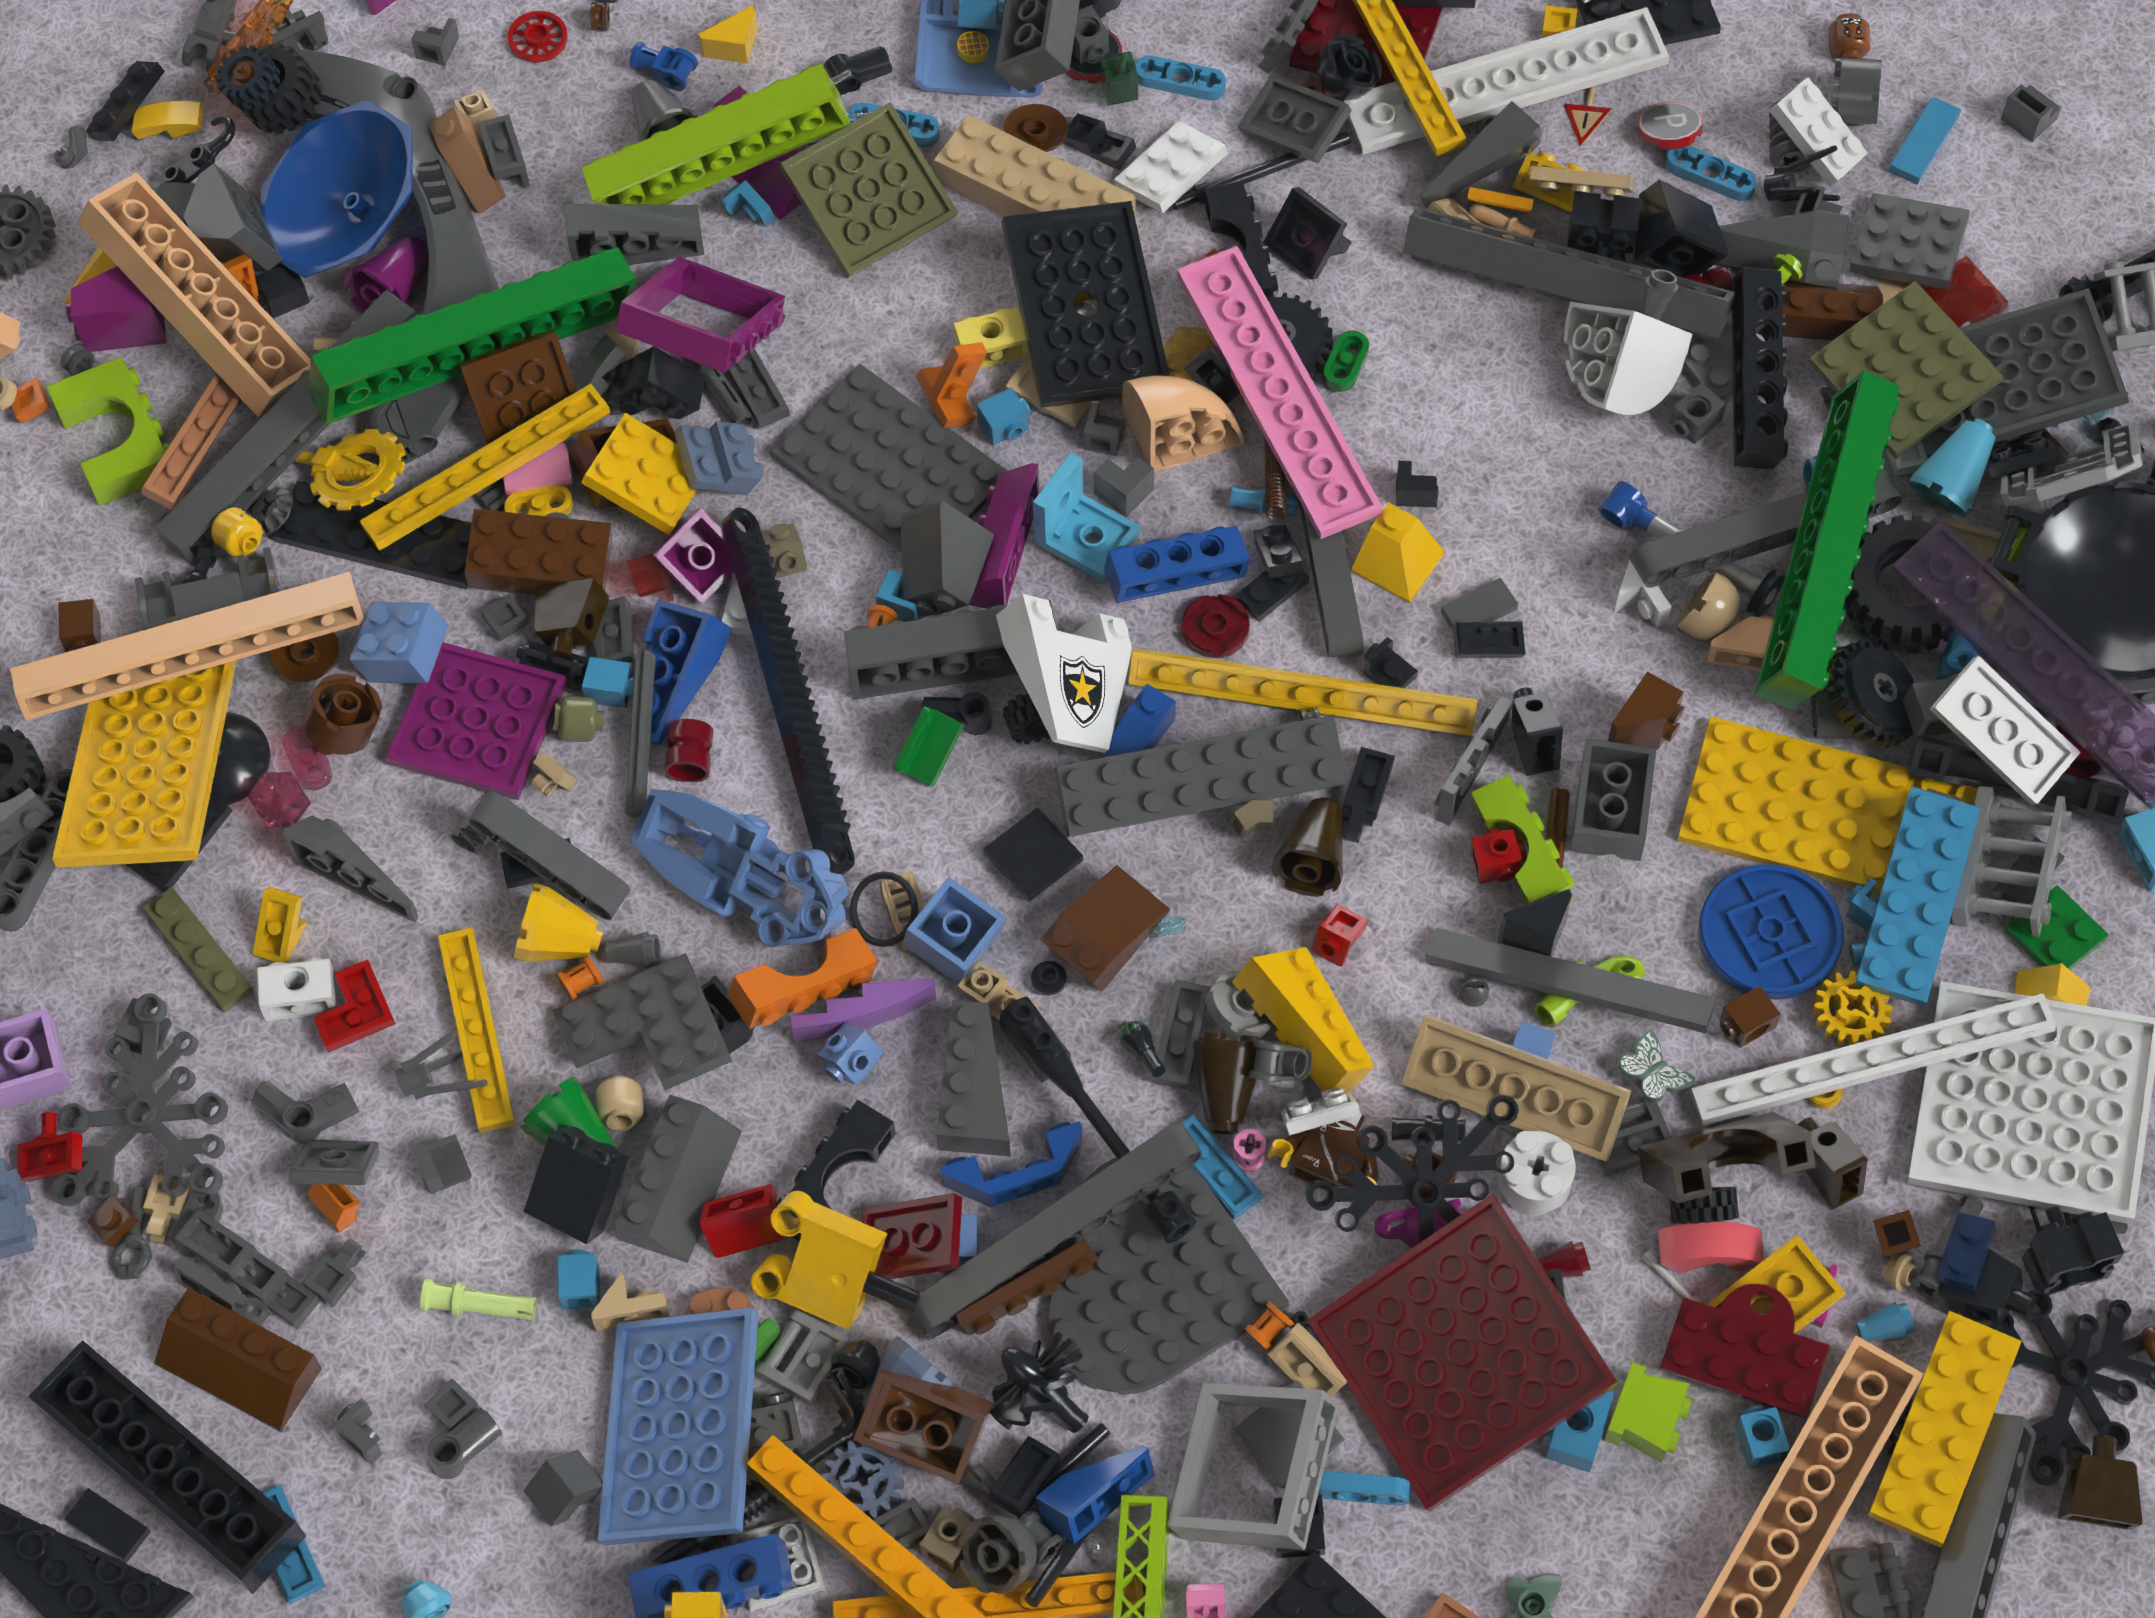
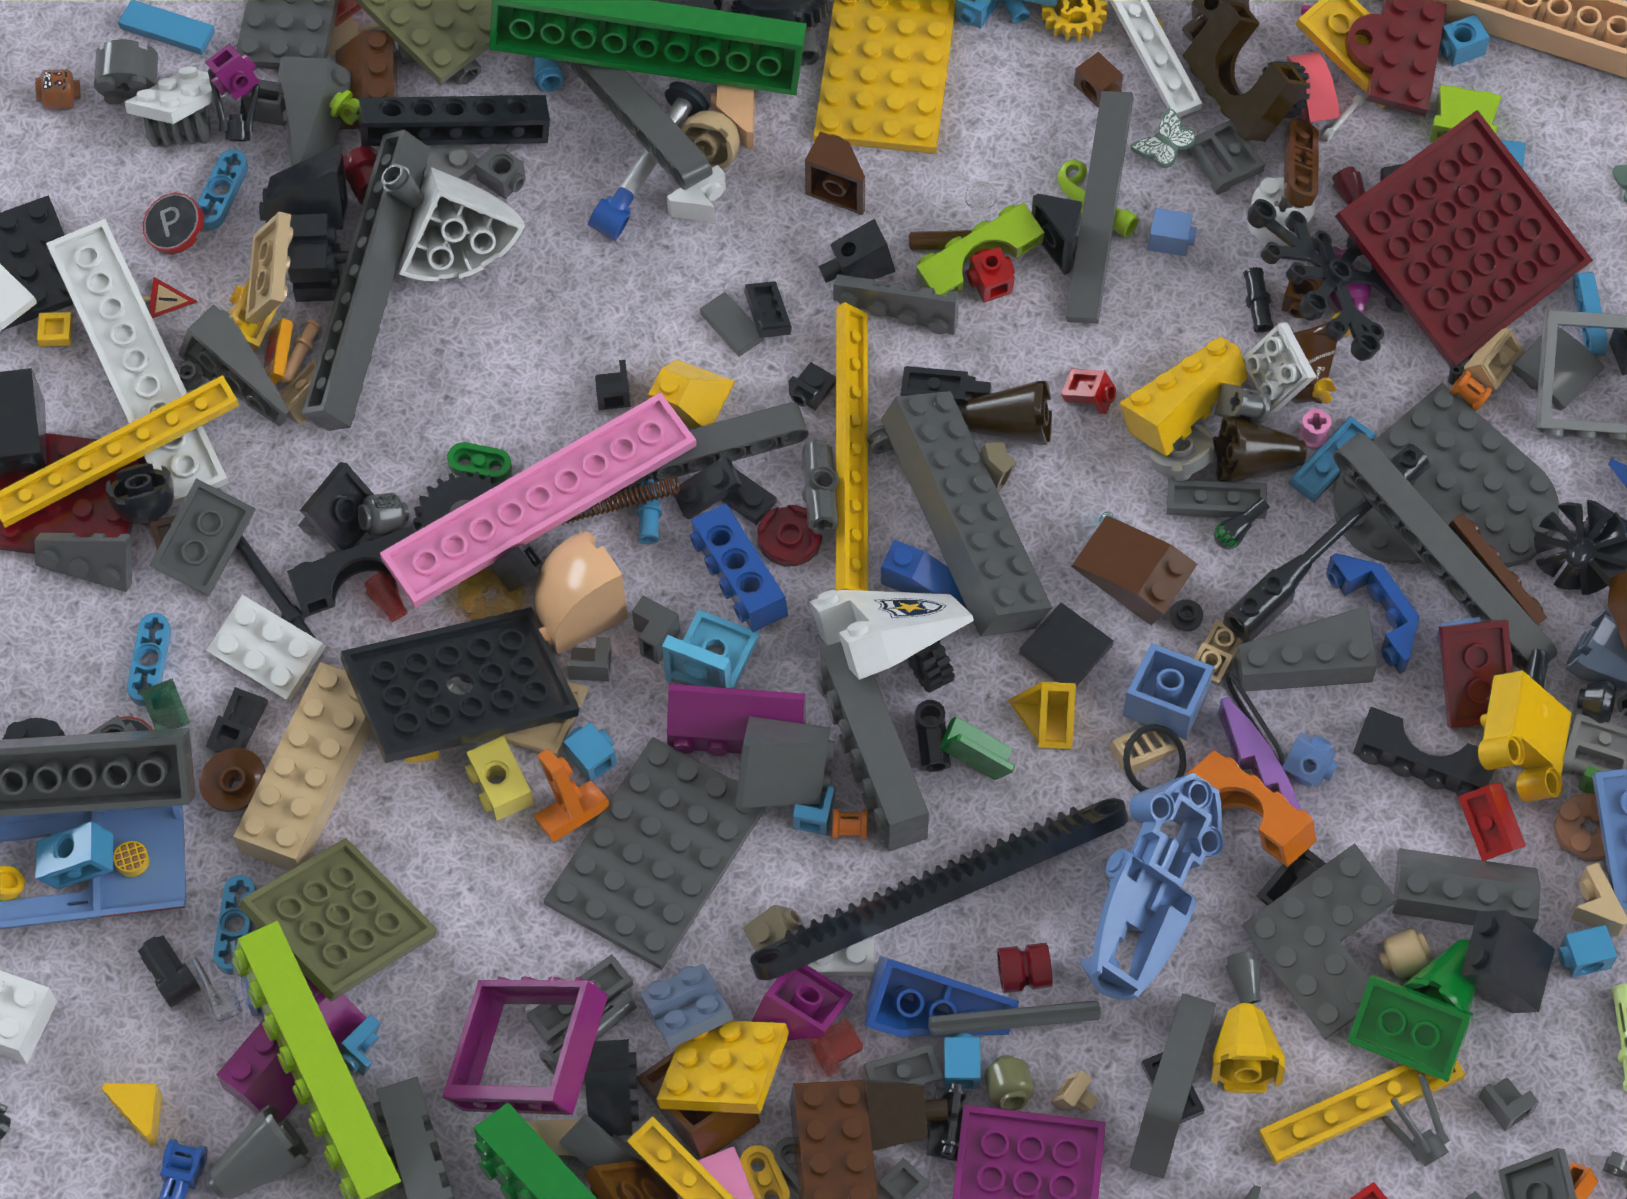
camera: 100 degrees left, 0 degrees up
(528, 1071) = (1410, 1027): none -> green plate
(579, 978) = (1287, 1019): orange bush -> none
(902, 1006) = (1230, 676): none -> black piece
(956, 828) = (1048, 713): none -> yellow slope
(1236, 648) = (820, 487): none -> dark grey piece
(1295, 268) = (382, 514): none -> dark grey head
(1474, 996) = (1112, 286): dark grey hinge -> none
(1549, 1096) = (1213, 231): tan plate -> none
(1559, 1178) = (1301, 163): none -> reddish brown piece
(1613, 799) = (918, 191): dark grey brick -> none
(1771, 931) = (1012, 74): blue plate -> none
(1826, 162) = (232, 72): none -> magenta brick

